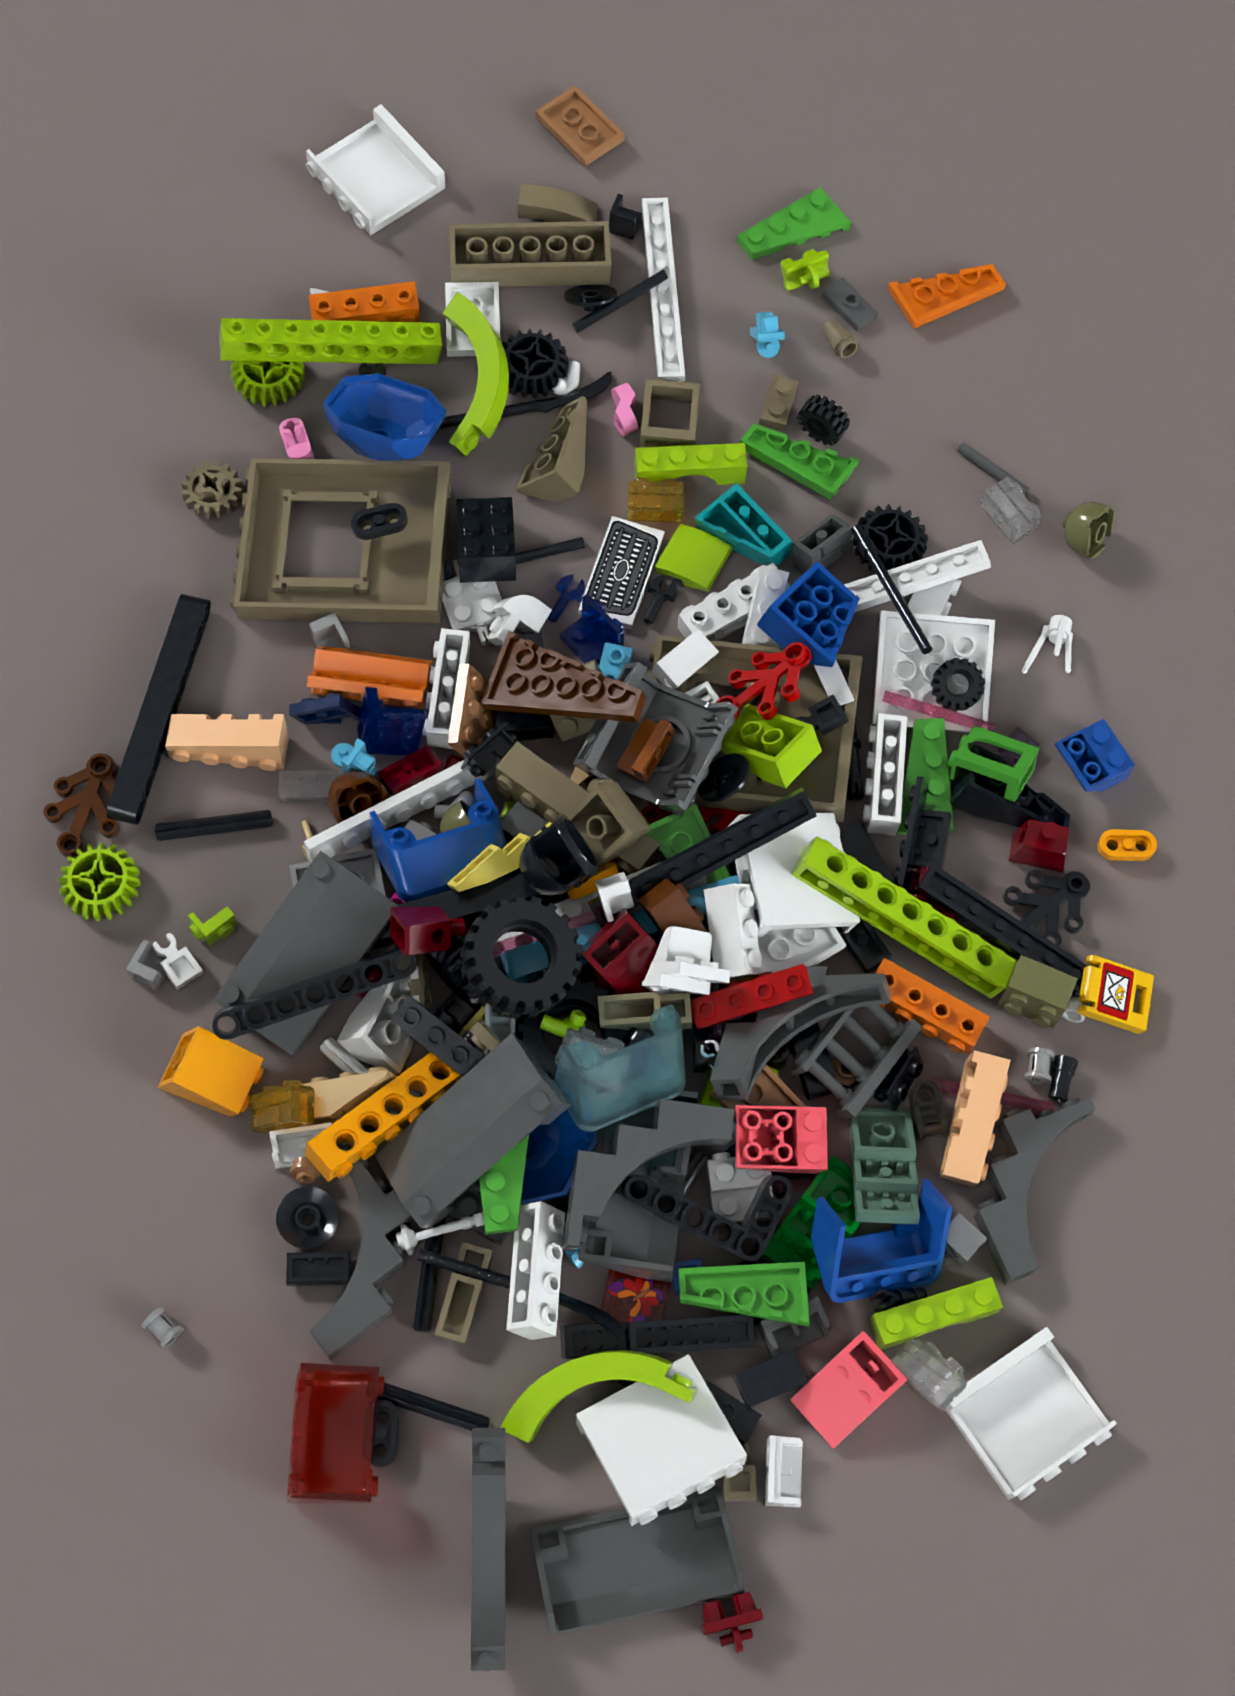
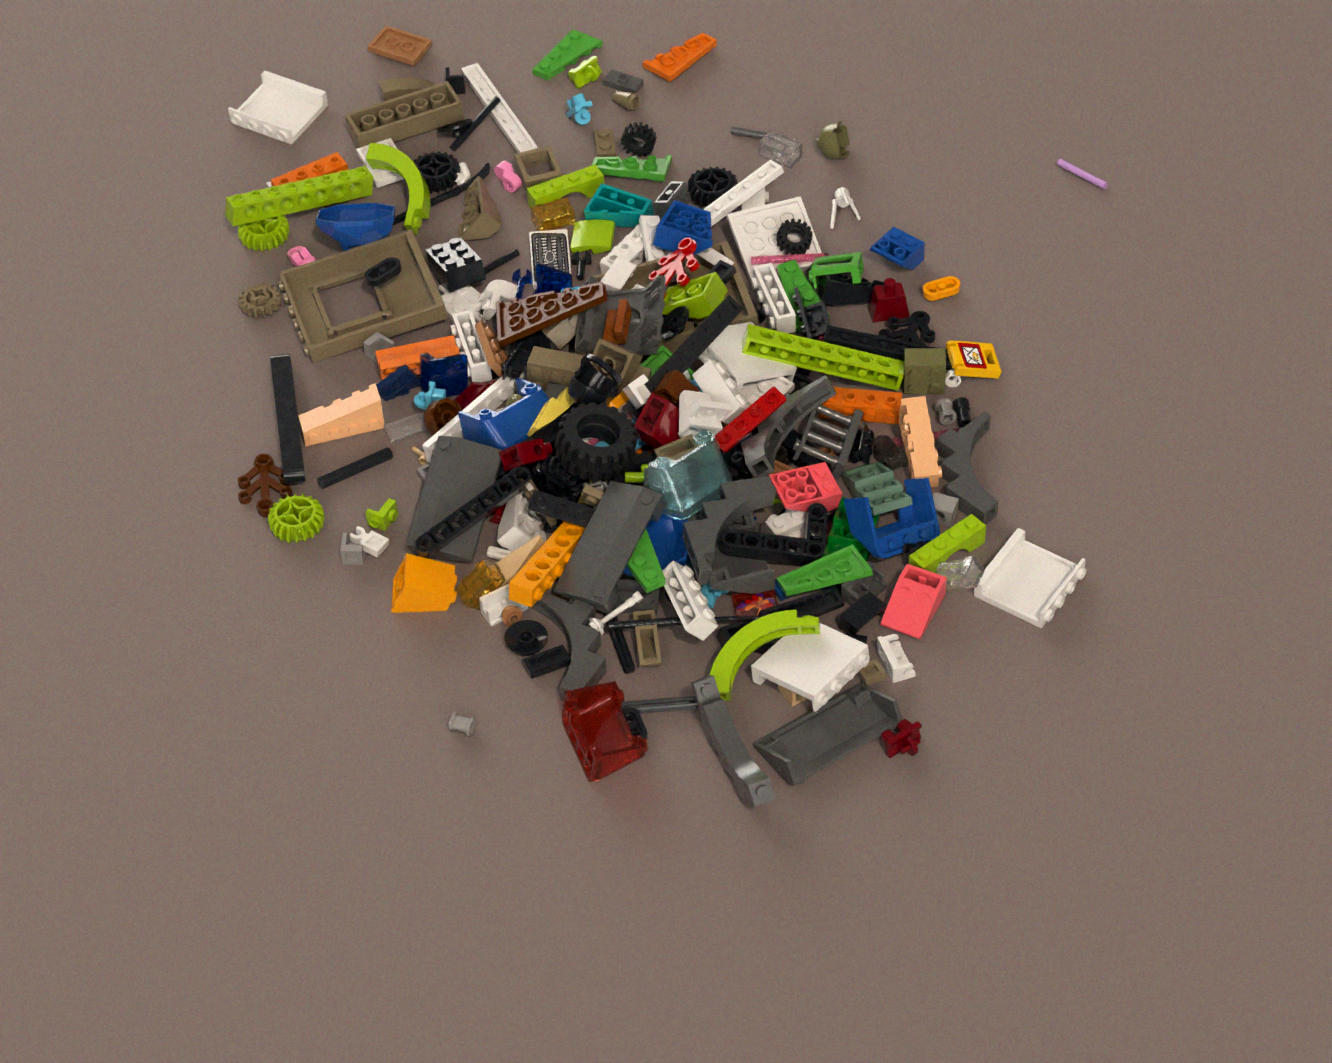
camera: 15 degrees left, 20 degrees down
(868, 550) = (703, 190): black bar -> none

